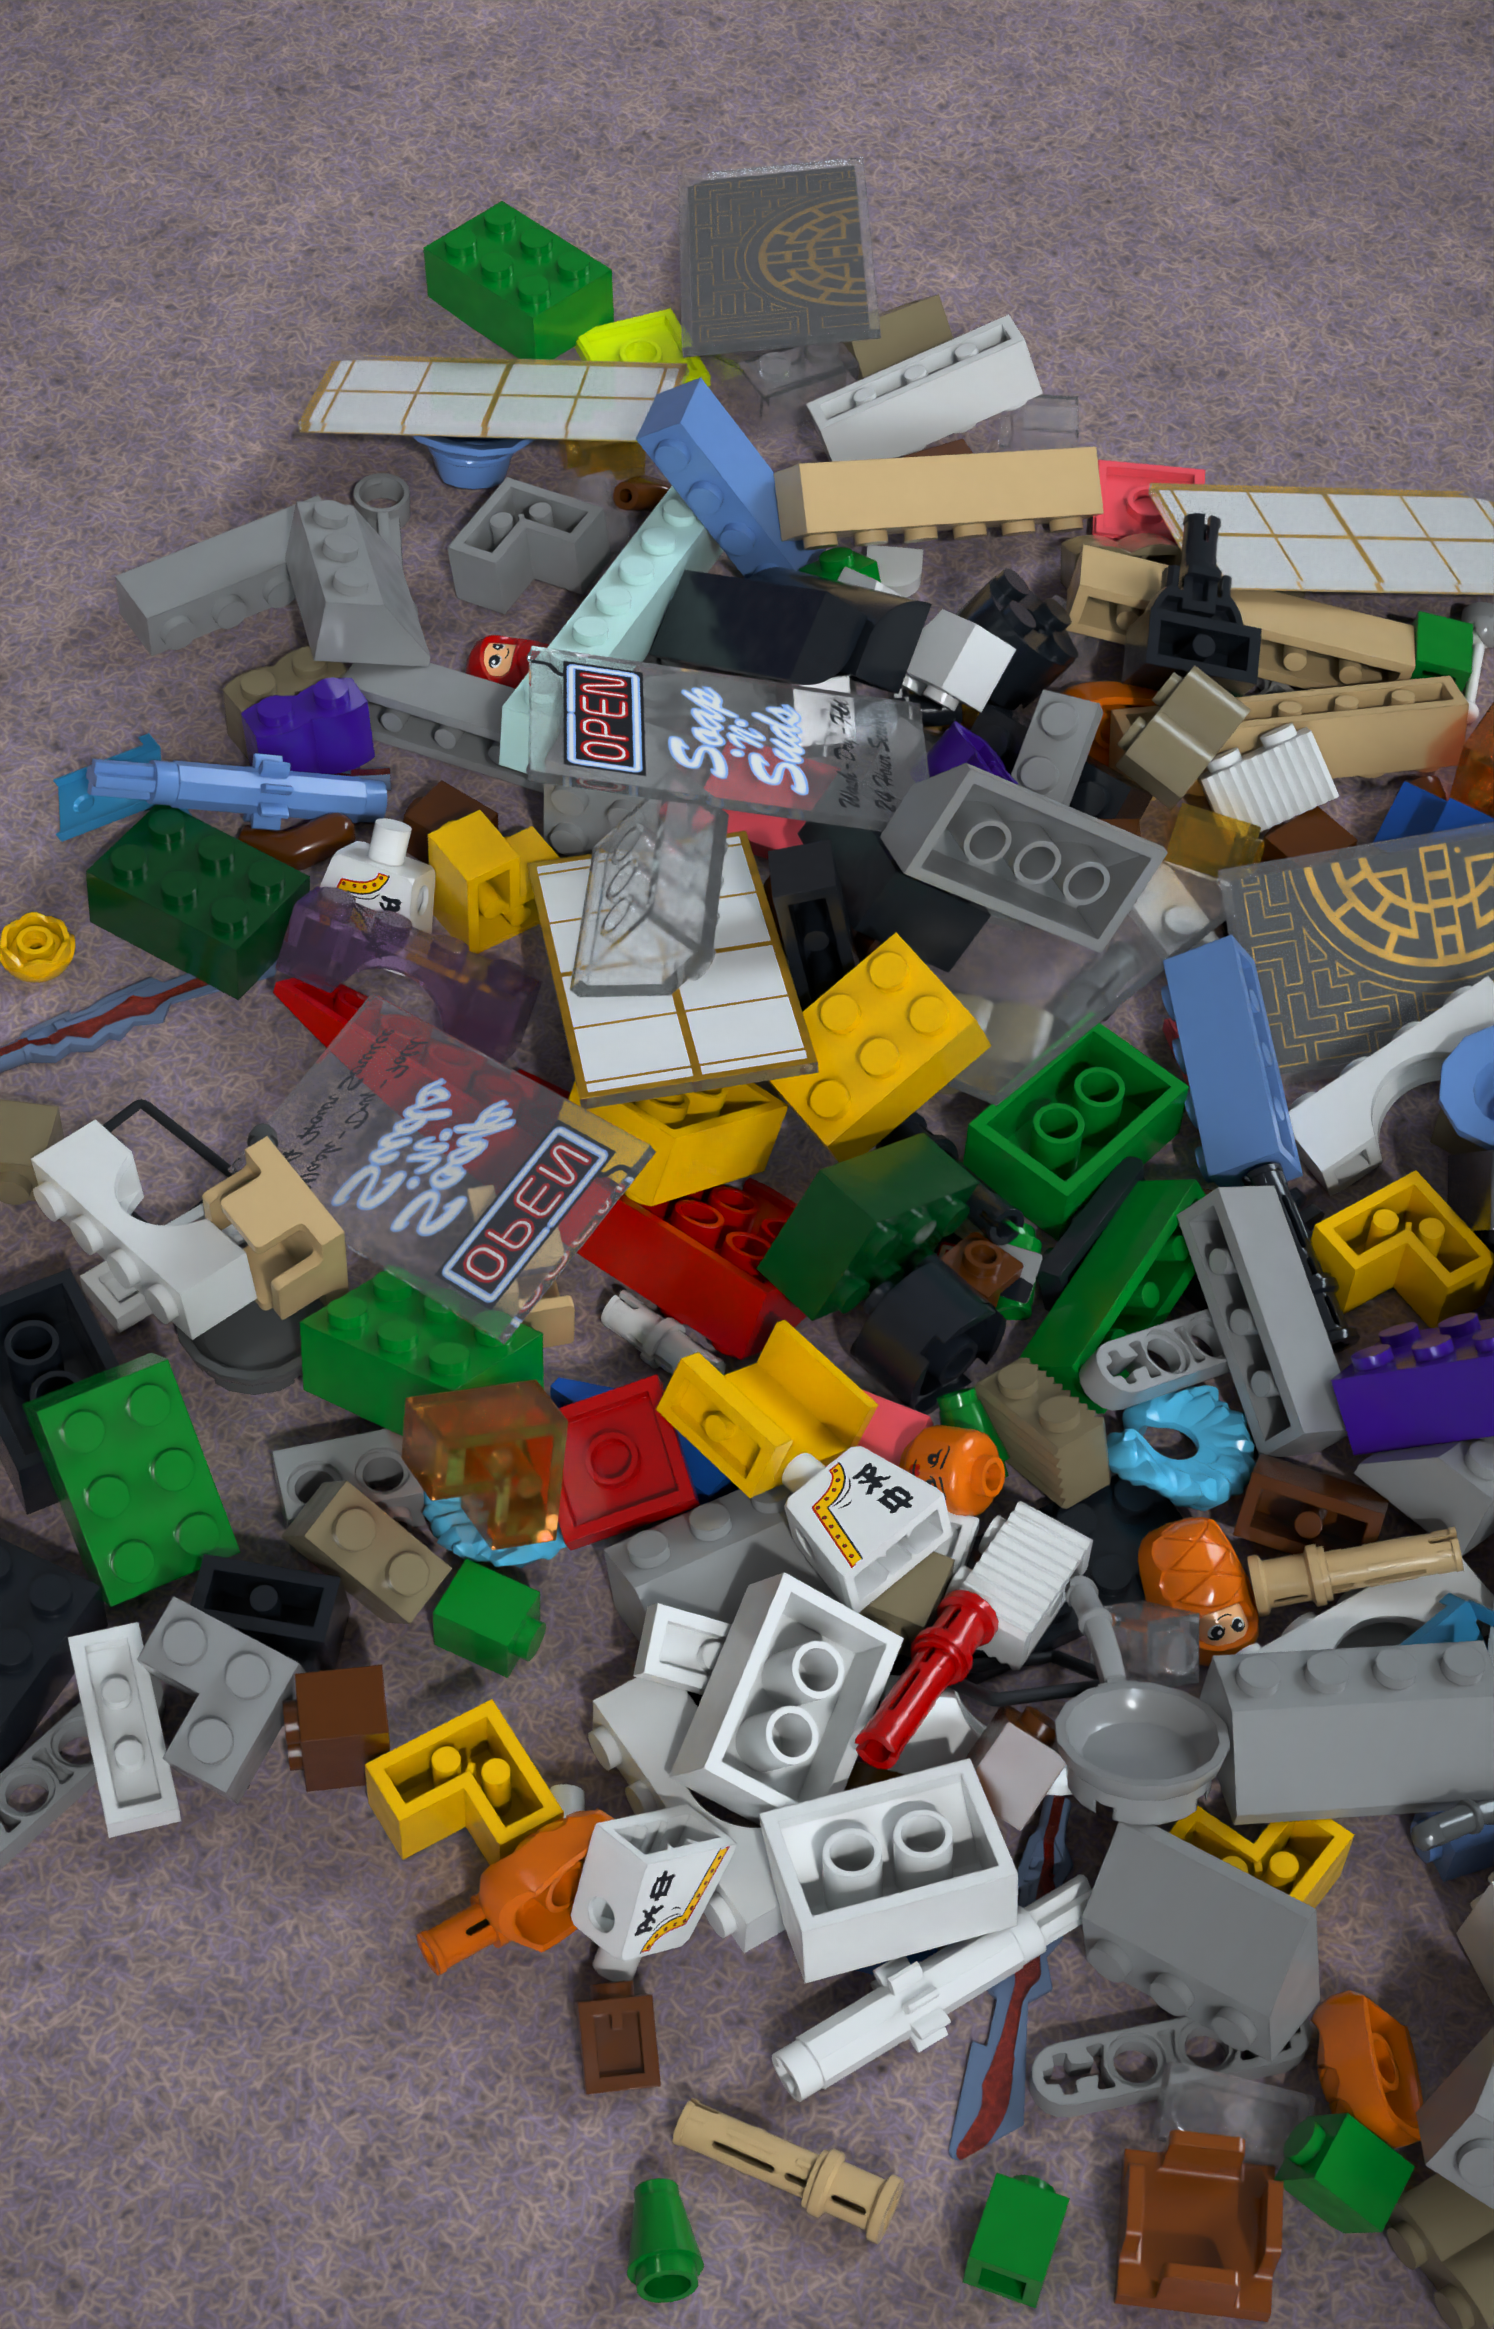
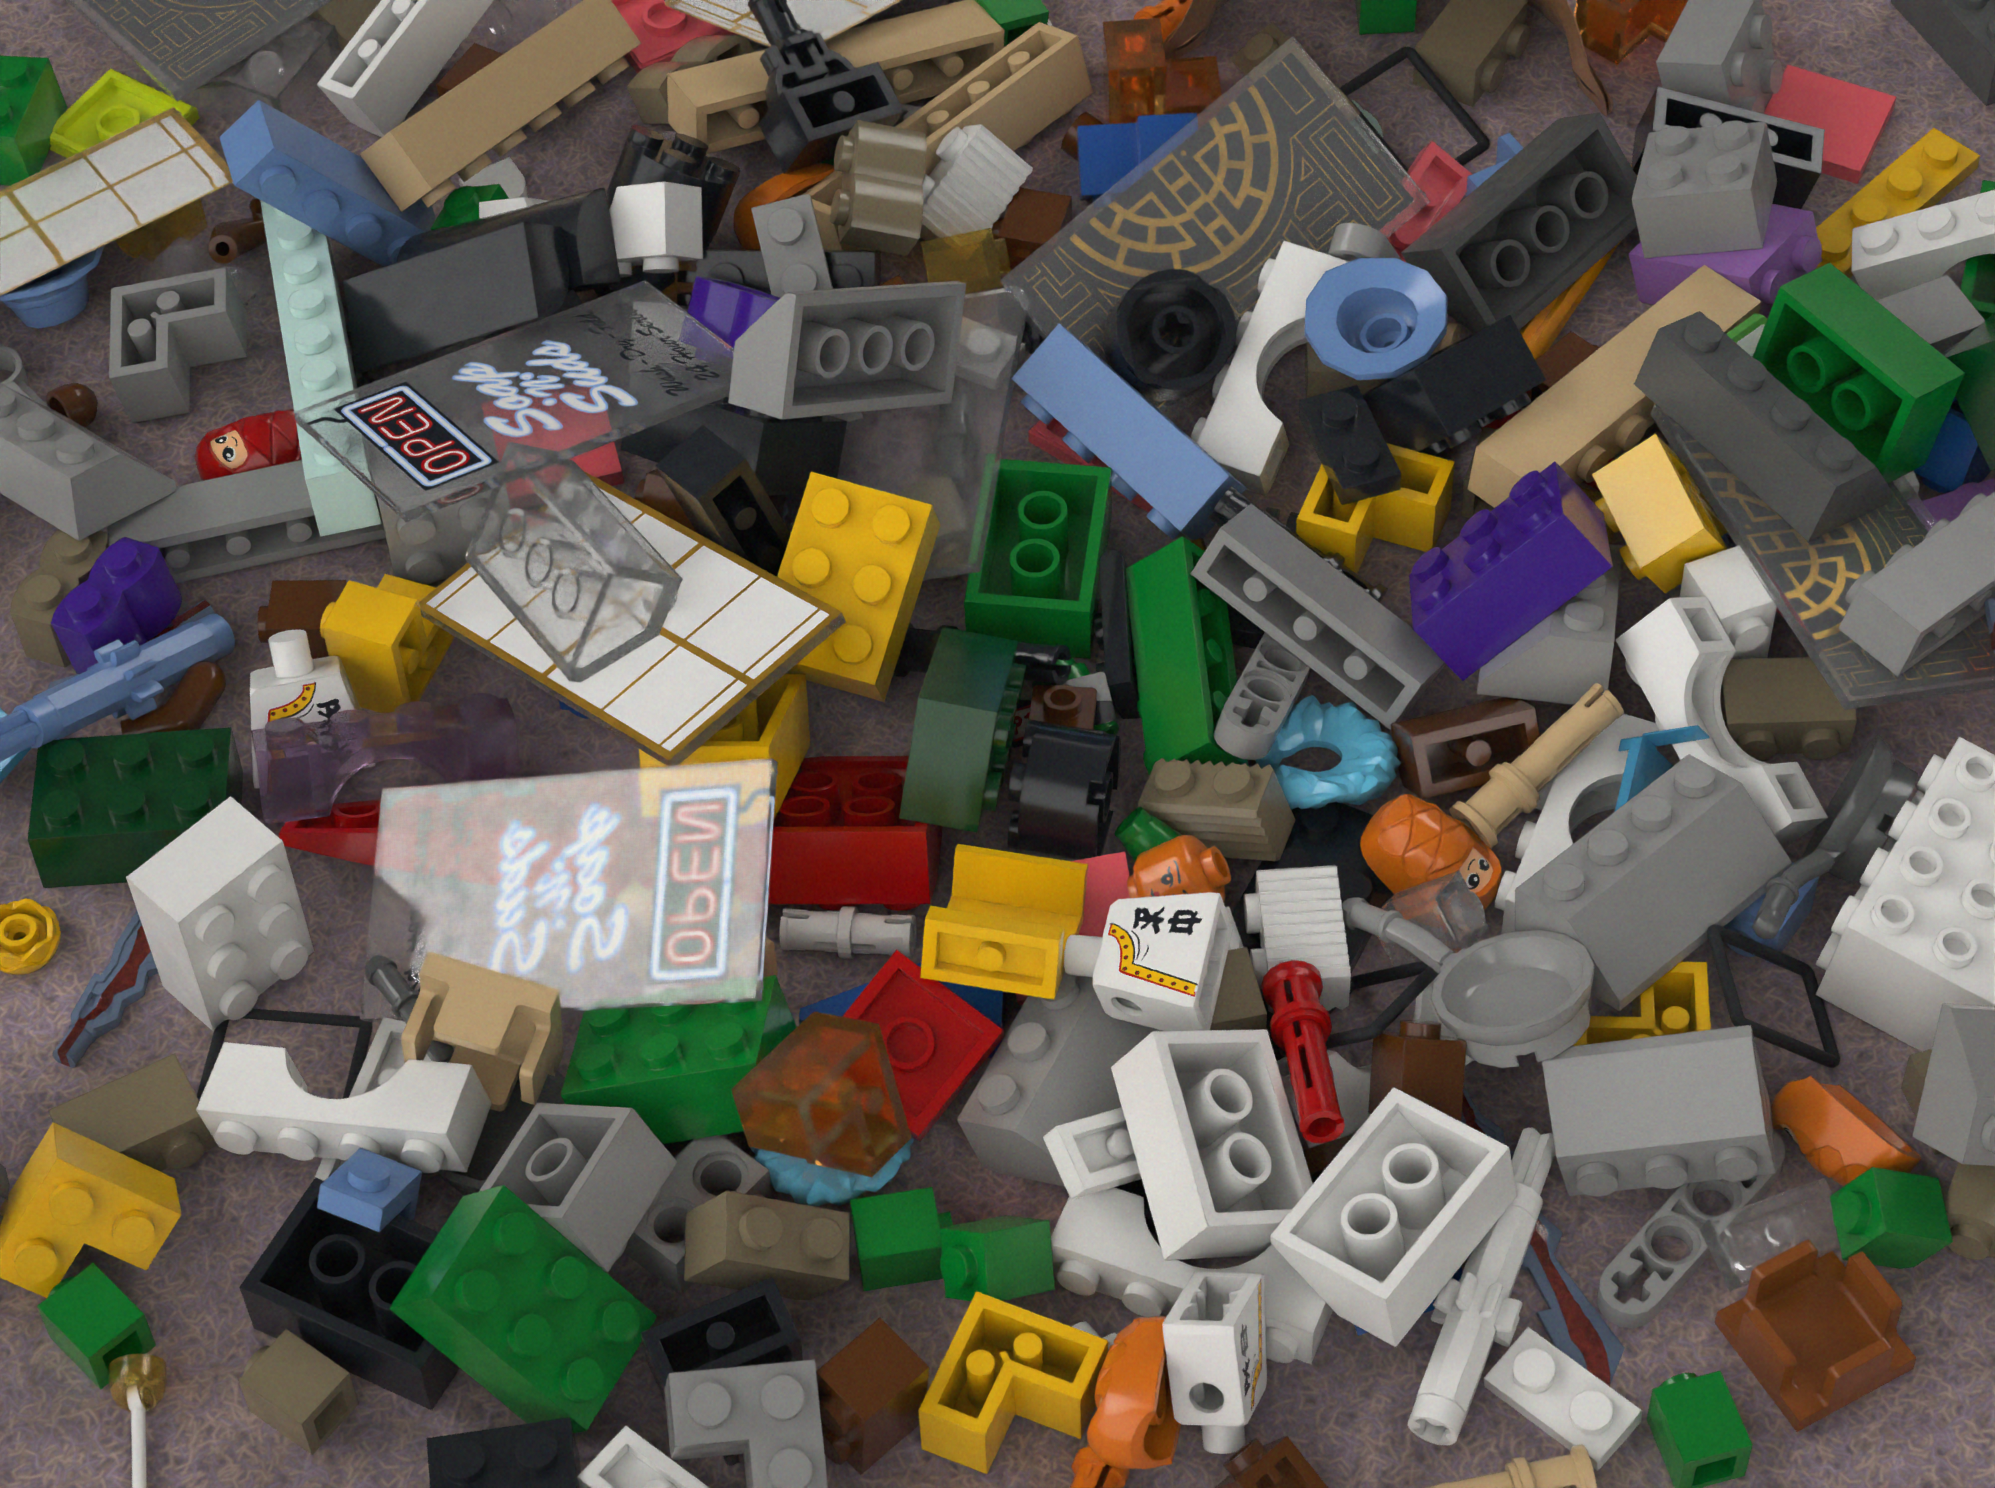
camera: 30 degrees left, 0 degrees up
(98, 1306) = (371, 1190): none -> medium blue bracket
(171, 1016) = (222, 914): none -> white brick
(257, 1401) = (586, 1173): none -> light grey brick
(420, 558) = (74, 402): none -> reddish brown hinge
(542, 1685) = (997, 1258): none -> green brick
(928, 2130) = (1562, 1397): none -> white plate
(1310, 971) = (1184, 307): none -> black brick
(1378, 1814) = (1716, 936): none -> black piece
(1411, 1188) = (1349, 444): none -> black plate

